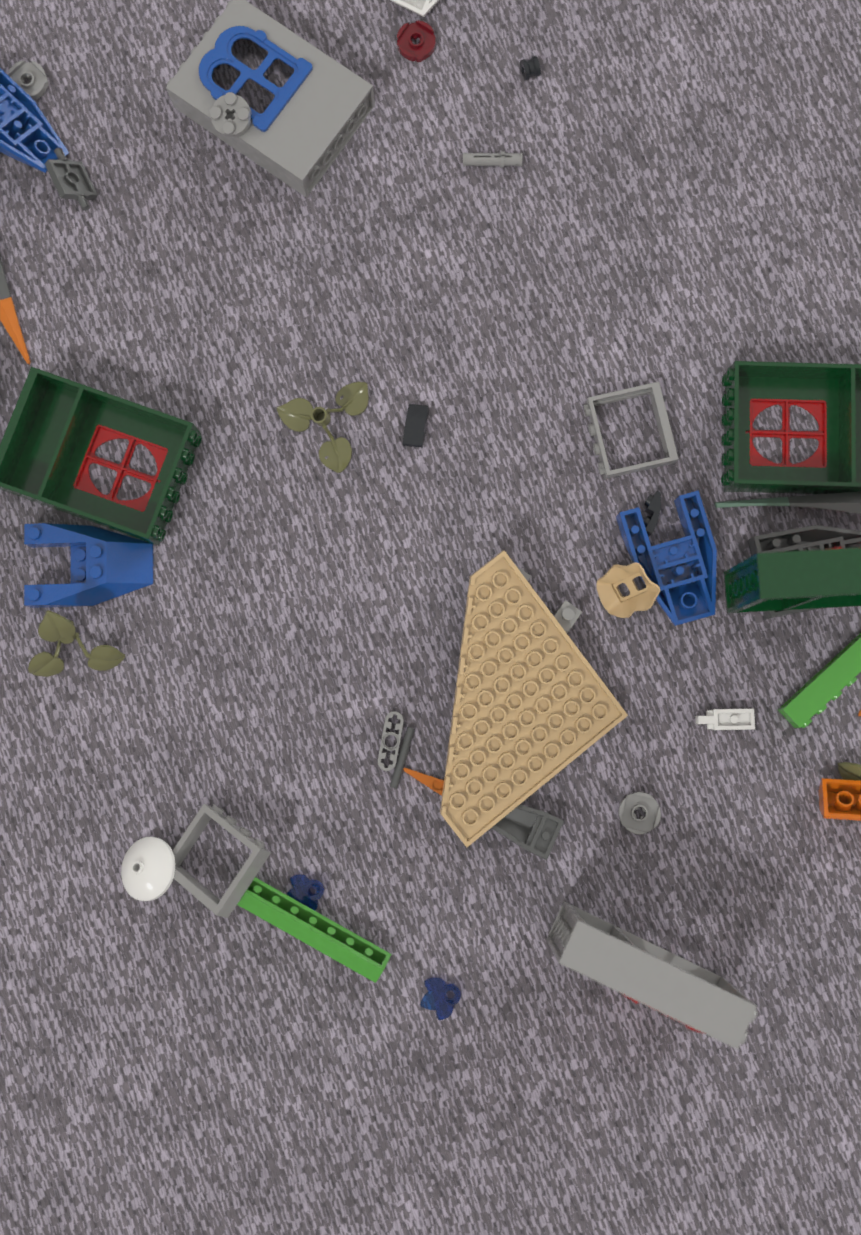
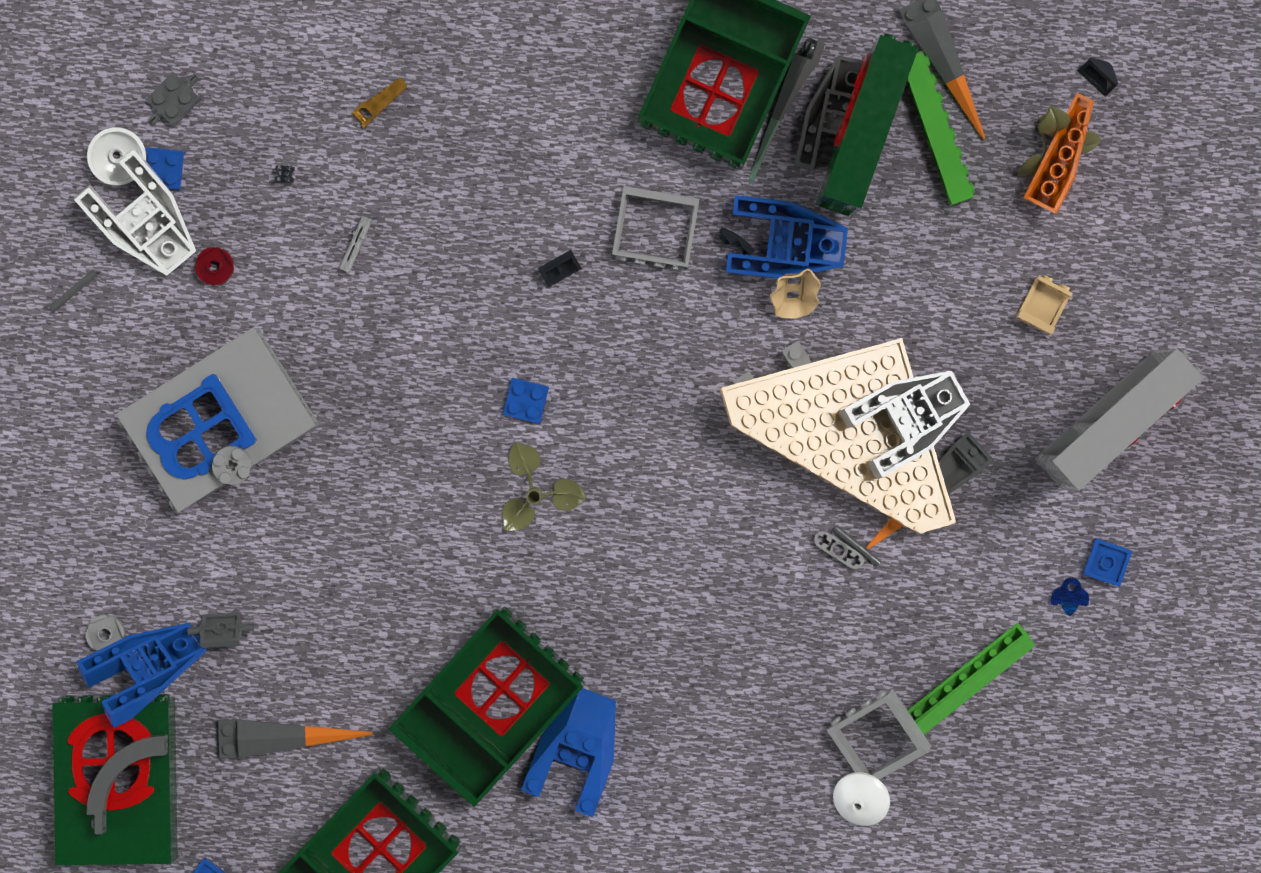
camera: 75 degrees left, 5 degrees up
(58, 628) = (629, 792): olive plant -> none
(302, 893) = (932, 676): clear blue plate -> none
(410, 377) = (526, 400): none -> blue plate
(415, 425) = (572, 414): black slope -> none
(490, 1021) = (1107, 562): none -> blue plate
(552, 355) = (559, 268): none -> black hinge
(565, 760) = (919, 410): none -> wedge
(635, 128) = (379, 102): none -> pearl gold piece
(644, 823) = (998, 361): light grey plate -> none
(723, 845) = (1044, 304): none -> tan panel
(728, 719) = (940, 253): white hinge -> none

